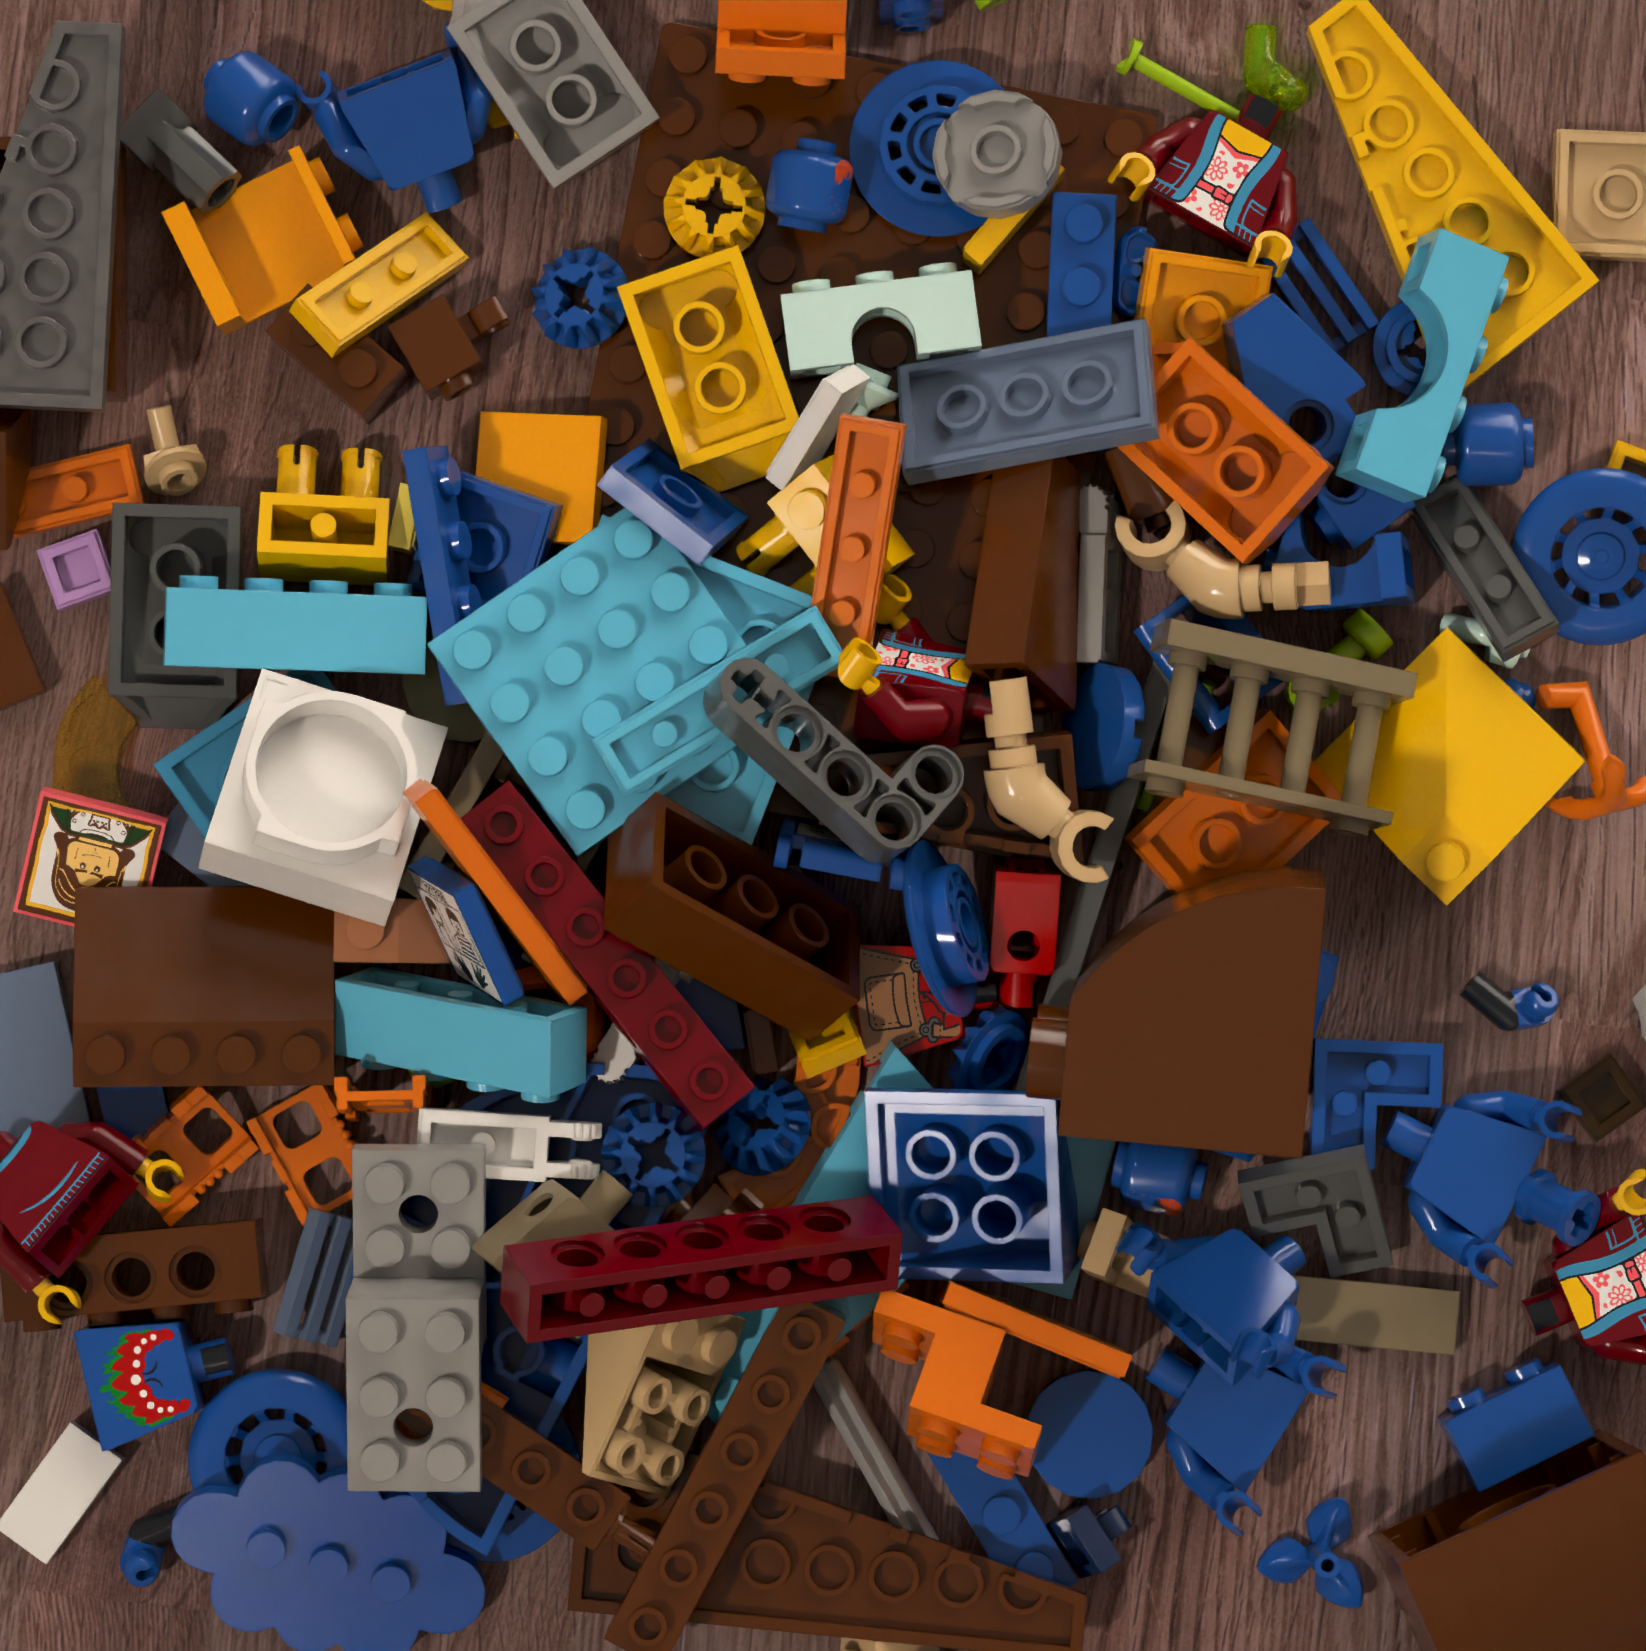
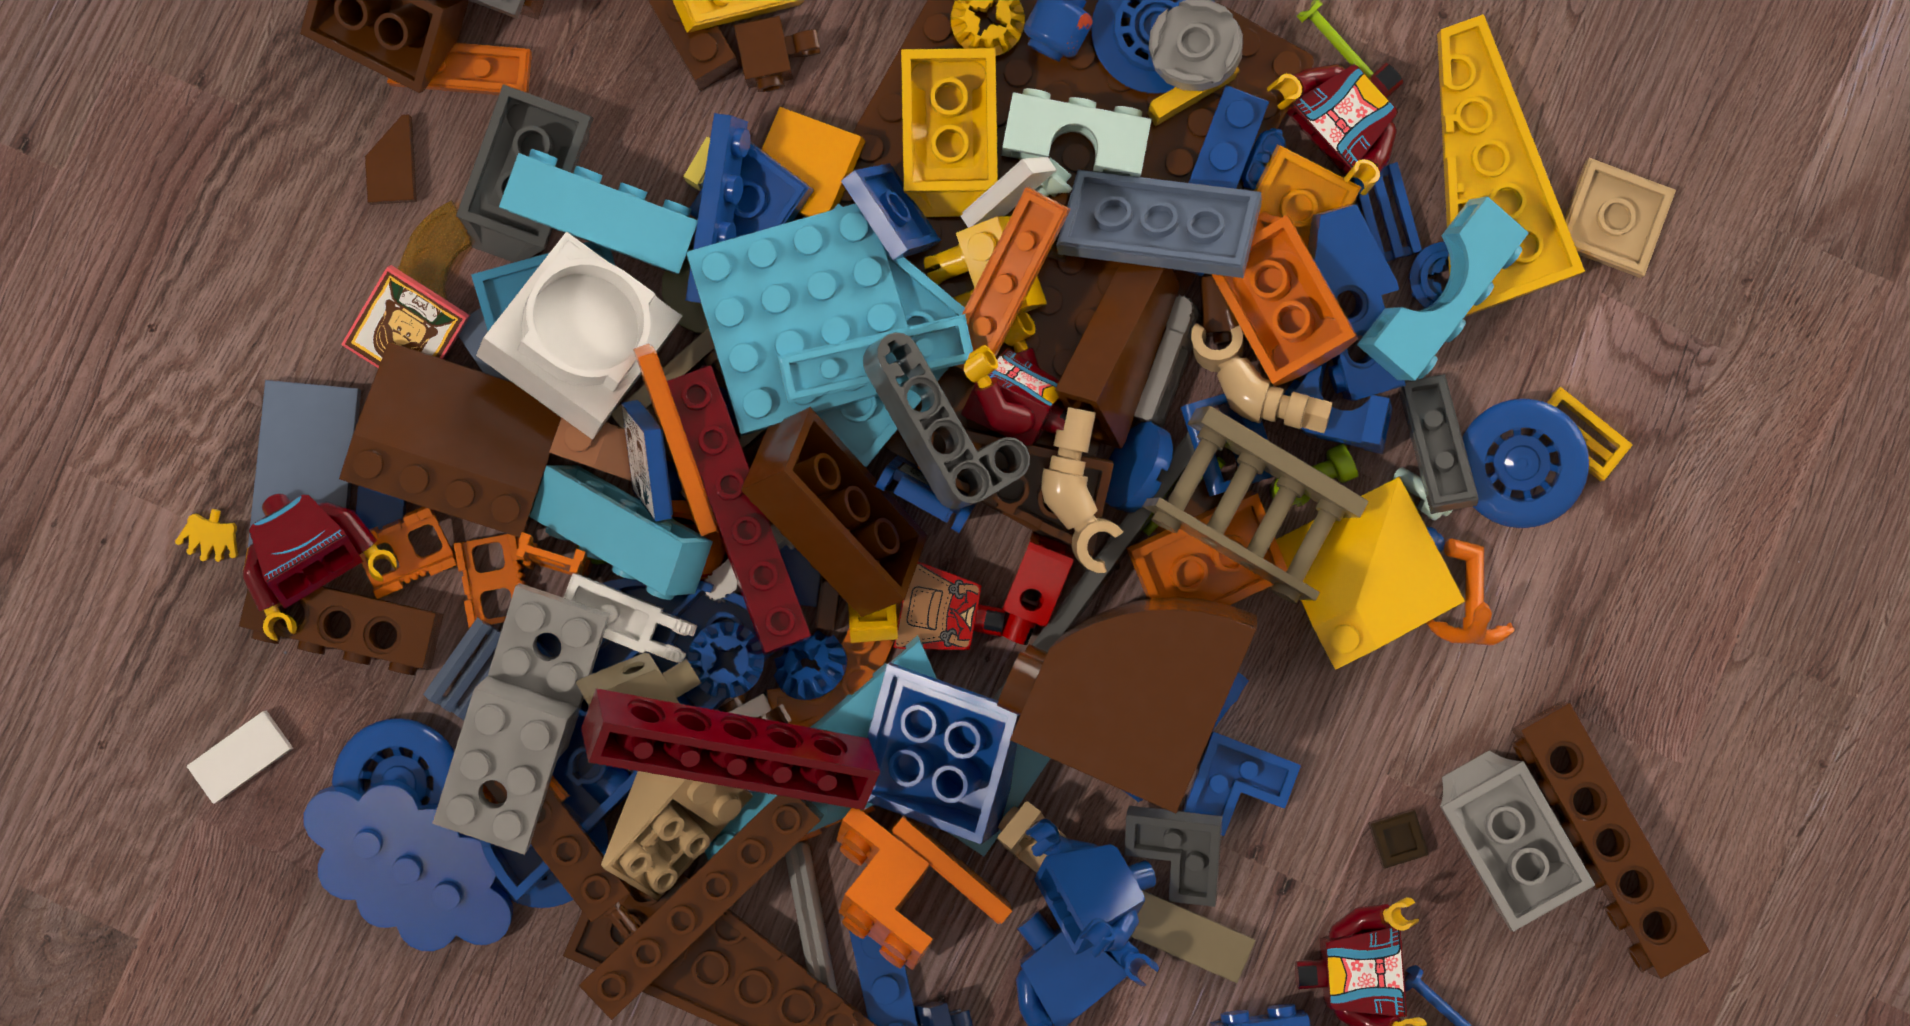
camera: 10 degrees right, 0 degrees up
(77, 569) = (464, 123): lavender tile -> none
(146, 1375) = (325, 696): blue torso -> none
(146, 1547) = (286, 815): arm -> none
(170, 460) = (554, 74): tan plate -> none
(324, 535) = (642, 155): yellow brick -> none
(575, 326) = (864, 69): blue gear -> none
(945, 927) = (981, 569): blue wheel -> none
(1002, 1040) = (994, 659): blue gear -> none
(1091, 1434) = (966, 954): blue tile -> none
(1158, 1177) = (1072, 792): blue head -> none
(1265, 75) = (1399, 52): clear neon green arm -> none
(1472, 1167) = (1292, 858): blue torso -> none
(1490, 445) = (1471, 361): blue head -> none
(1511, 1009) = (1356, 756): arm -> none
(1557, 1207) = (1342, 905): blue bush -> none

